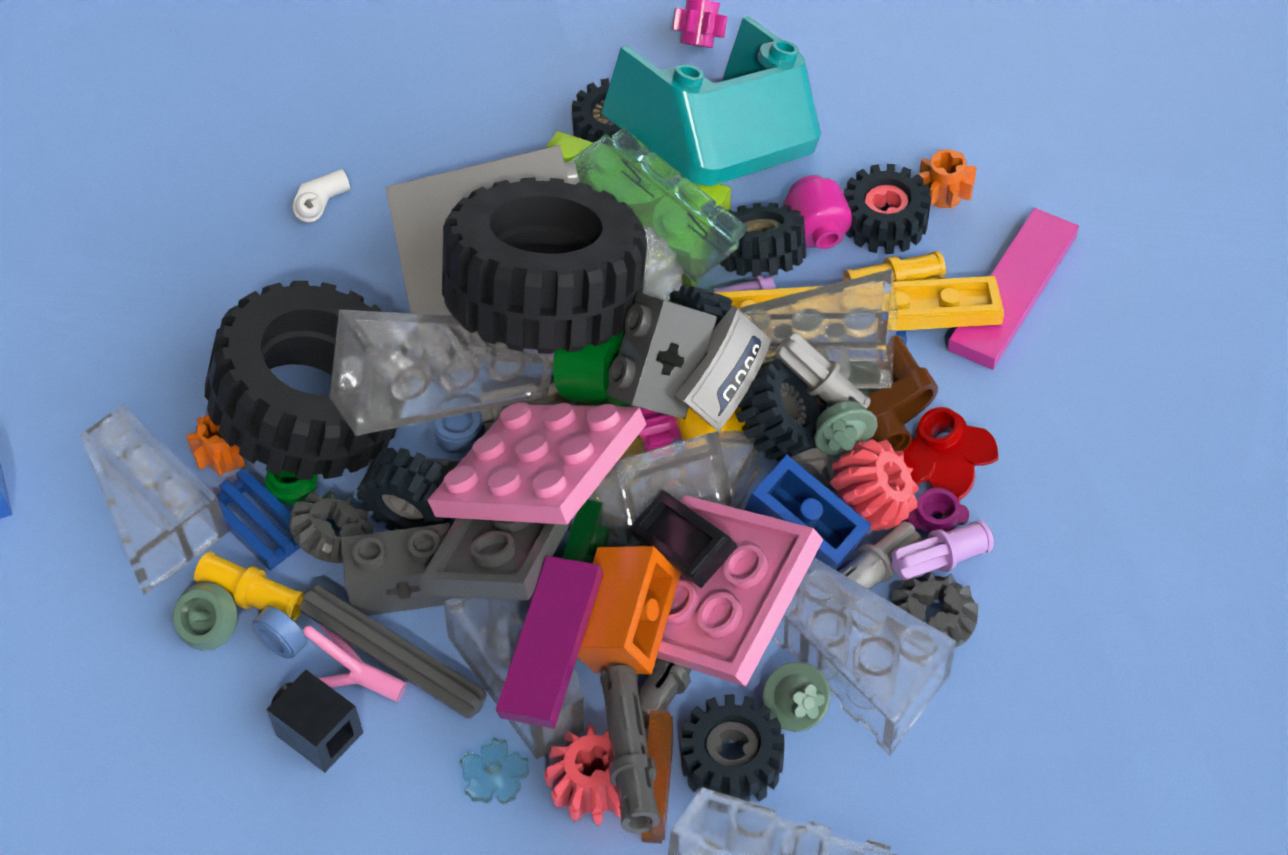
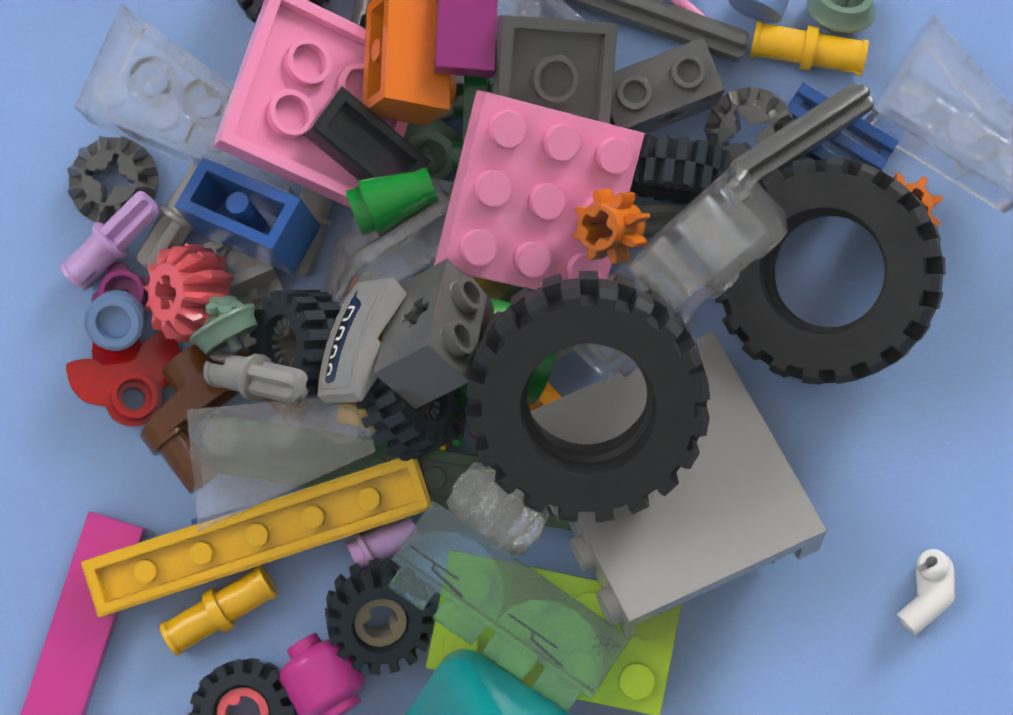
camera: 165 degrees right, 30 degrees up
(287, 493) = (807, 131): none -> dark grey axle
(482, 411) = (611, 226): none -> orange gear
(671, 476) = (390, 199): none -> green cone
(797, 696) = (223, 43): sand green hat -> none
(946, 479) = (115, 320): none -> medium blue tile

